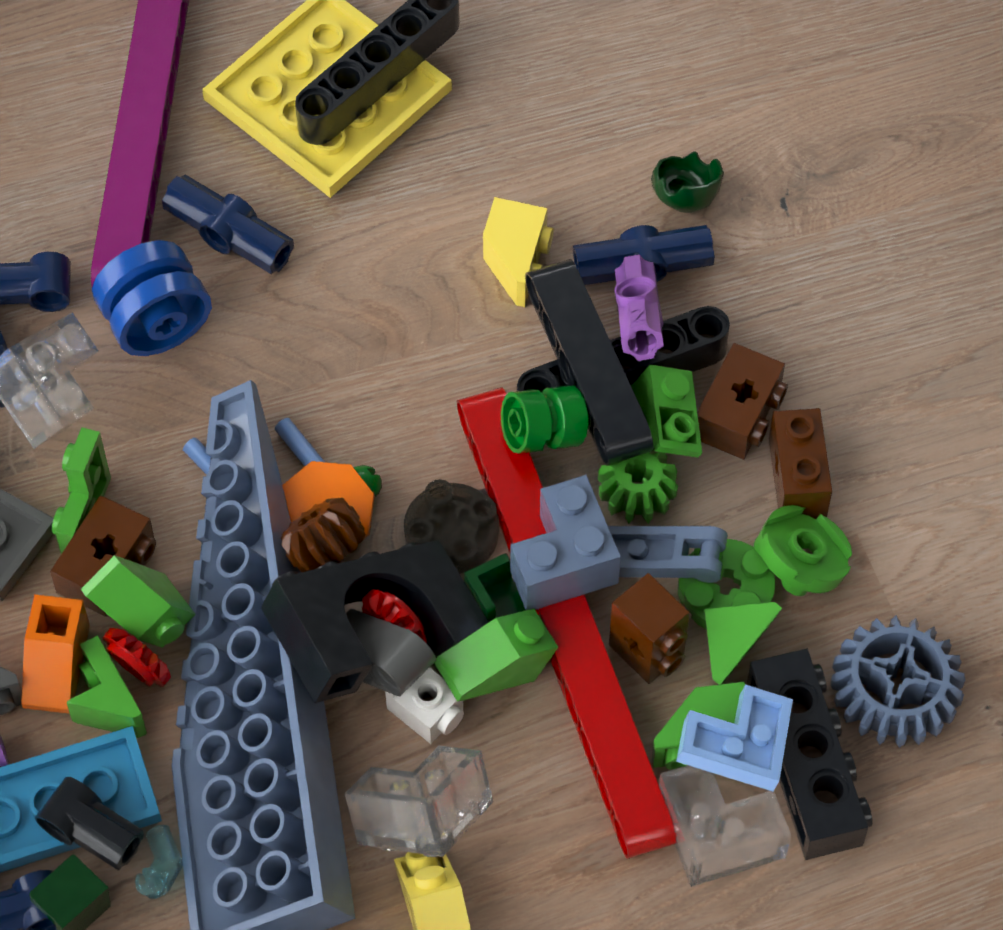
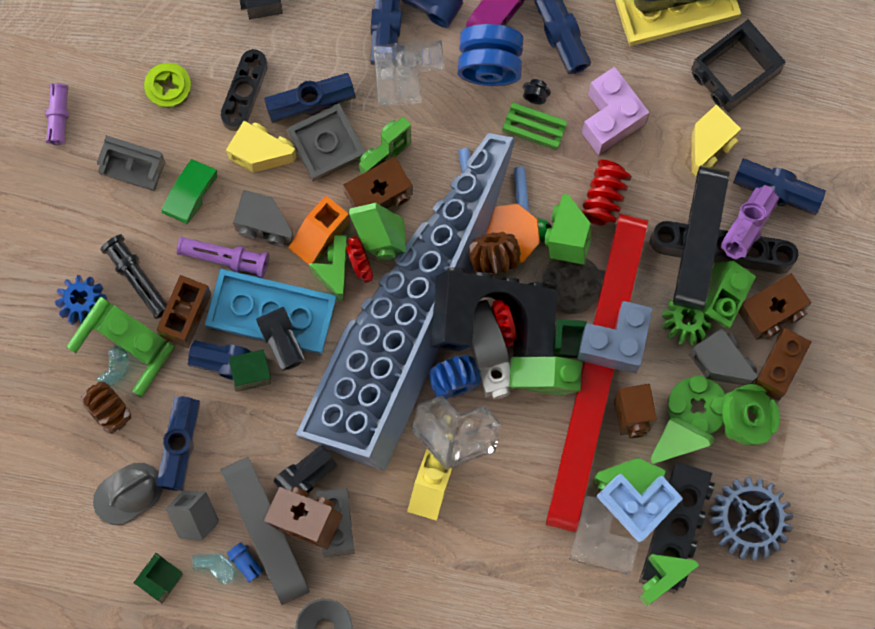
camera: 30 degrees right, 15 degrees up
(165, 868) = (302, 385): clear light blue arm -> none
(242, 317) = (536, 91): none -> black plate
(267, 354) = (539, 116): none -> bright green tile
(368, 277) = (619, 112): none -> lavender brick
(372, 732) = (455, 376): none -> blue gear
(409, 458) = (570, 234): none -> bright green slope
(421, 387) = (604, 193): none -> red piece
(484, 103) = (757, 46): none -> black window
(546, 417) = (657, 258): green wheel -> none
(665, 551) = (673, 369): sand blue plate -> none
(687, 182) = (833, 156): dark green hair -> none
(722, 500) = (721, 360): none -> dark grey slope
(842, 804) = (671, 570): none -> bright green slope

